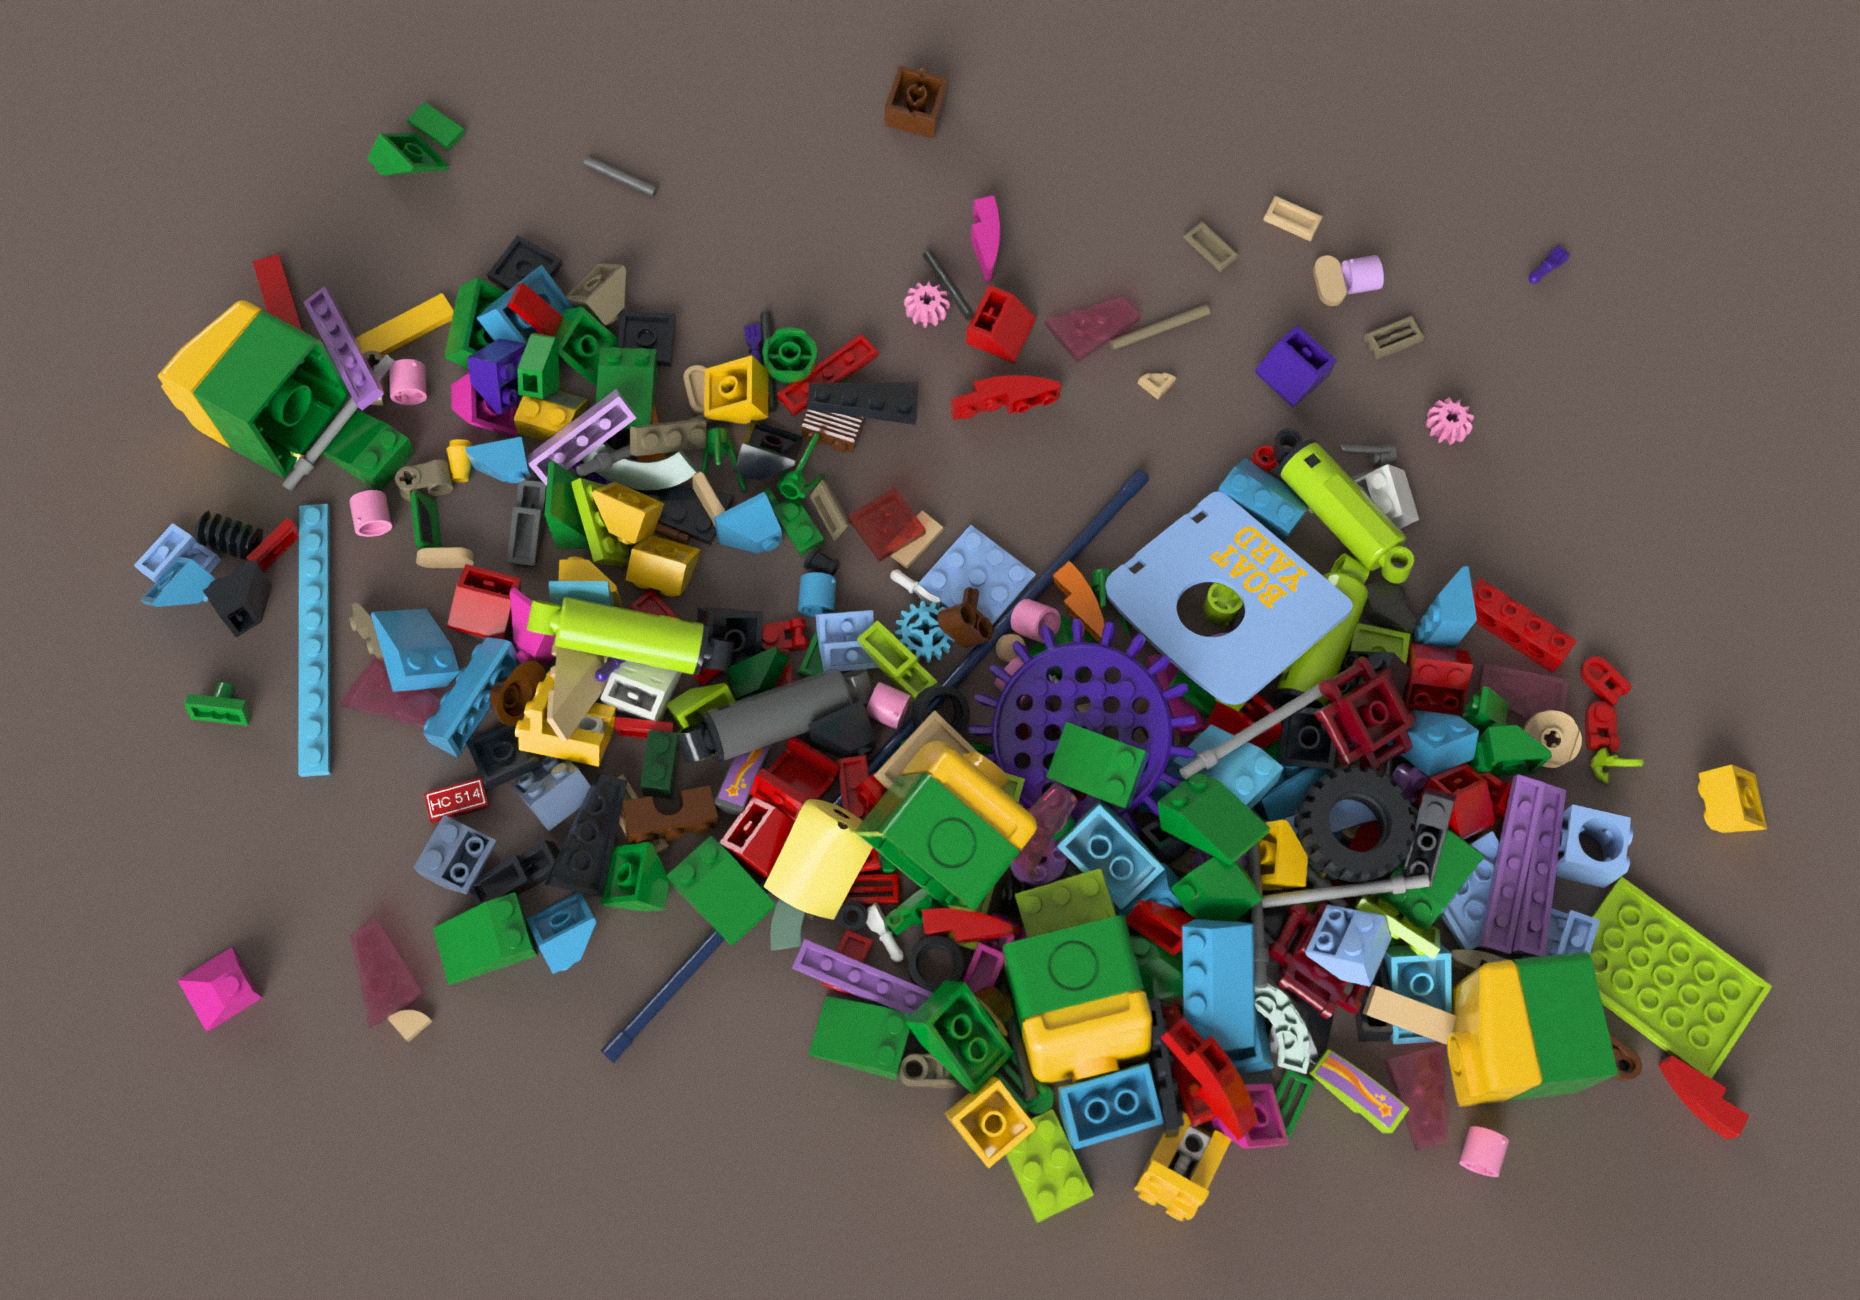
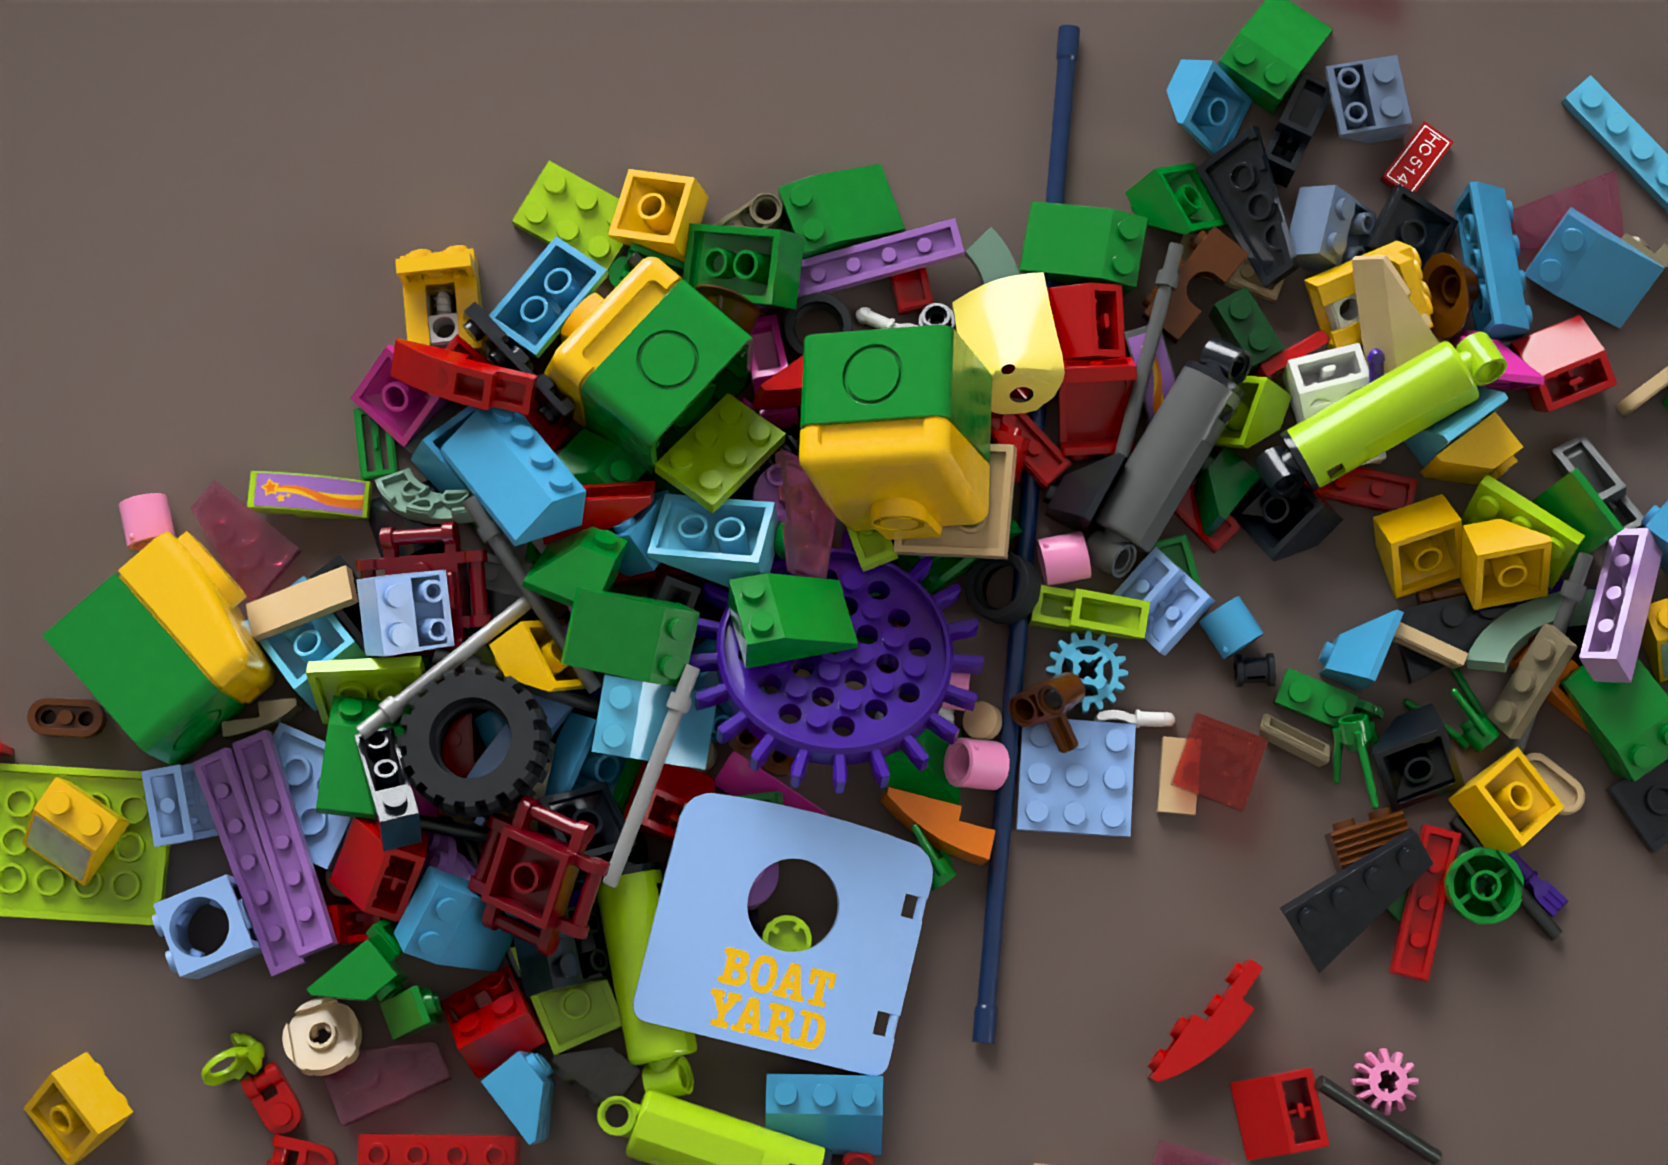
camera: 150 degrees right, 10 degrees up
(690, 819) = (1166, 281): none -> dark grey bar
(774, 635) = (1240, 553): red plate -> none
(1645, 969) = (73, 830): none -> yellow slope

